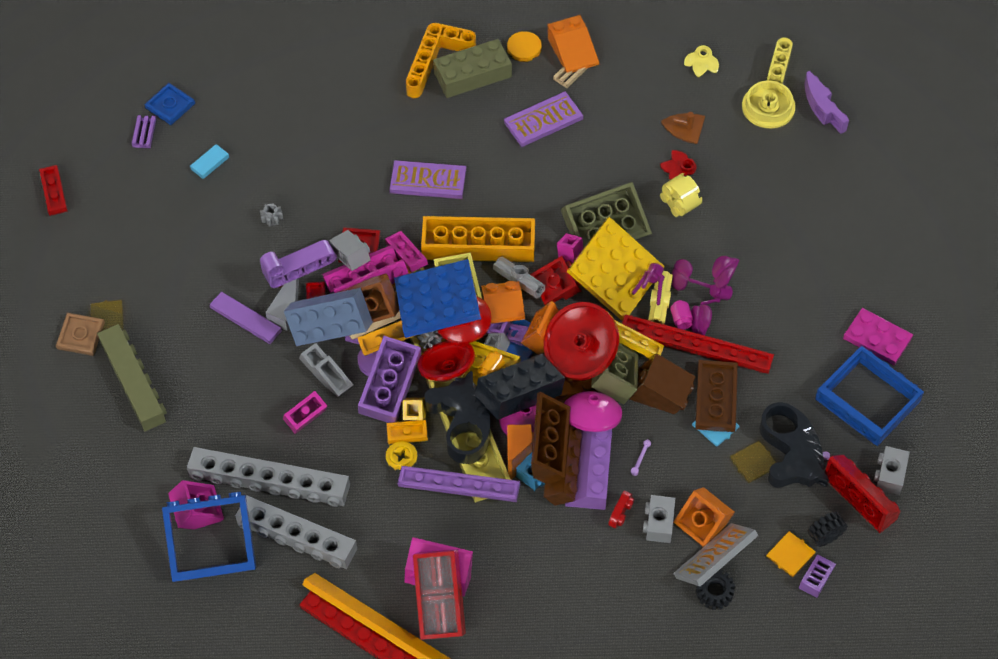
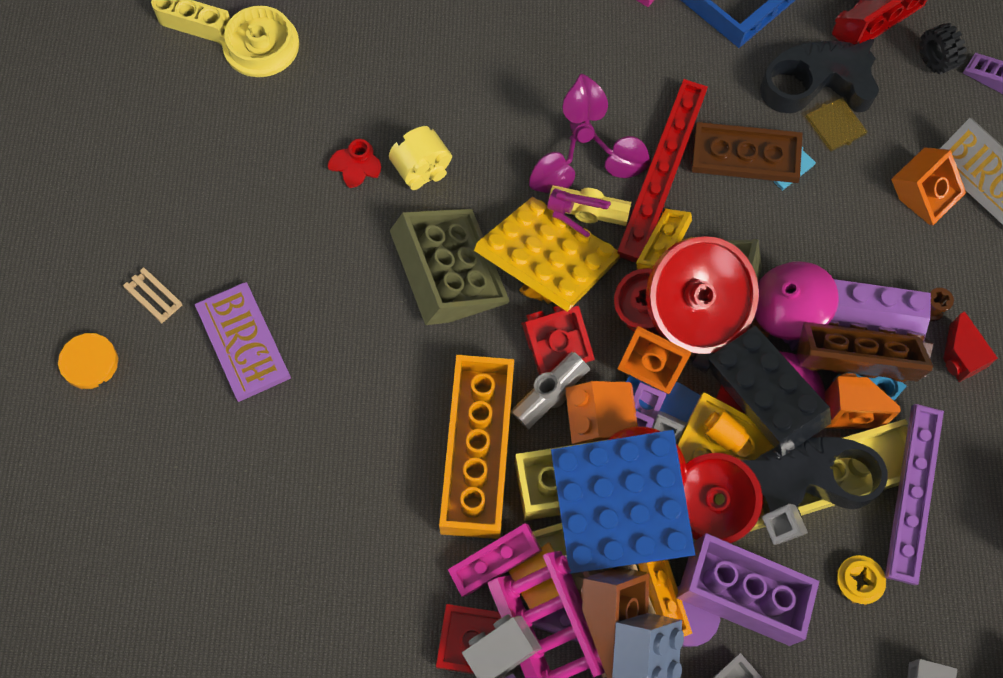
camera: 90 degrees left, 10 degrees up
(407, 431) = (821, 565): light orange plate -> none
(414, 409) = (794, 554): yellow brick -> none
(428, 179) = (342, 525): medium lavender tile -> none
(429, 393) = (784, 524): none -> light grey slope
(435, 37) = (80, 511): light orange beam -> none
(472, 68) = (125, 441): olive brick -> none
(569, 529) = (966, 349): none -> red slope
(570, 247) = (505, 313): dark pink brick -> none
(572, 44) = (103, 285): orange slope -> none
(603, 513) = (938, 297): none -> reddish brown bush
(624, 503) = (923, 280): red plate -> none
(634, 471) = (859, 264): lavender hinge -> none
(659, 530) = (953, 232): light grey brick -> none
(663, 385) = (737, 209): reddish brown slope -> none
(681, 314) = (617, 181): dark pink brick -> none
(685, 126) = (281, 150): dark orange shield -> none
(702, 63) = (169, 116): light yellow plate -> none
(791, 554) = (963, 98): light orange piece -> none

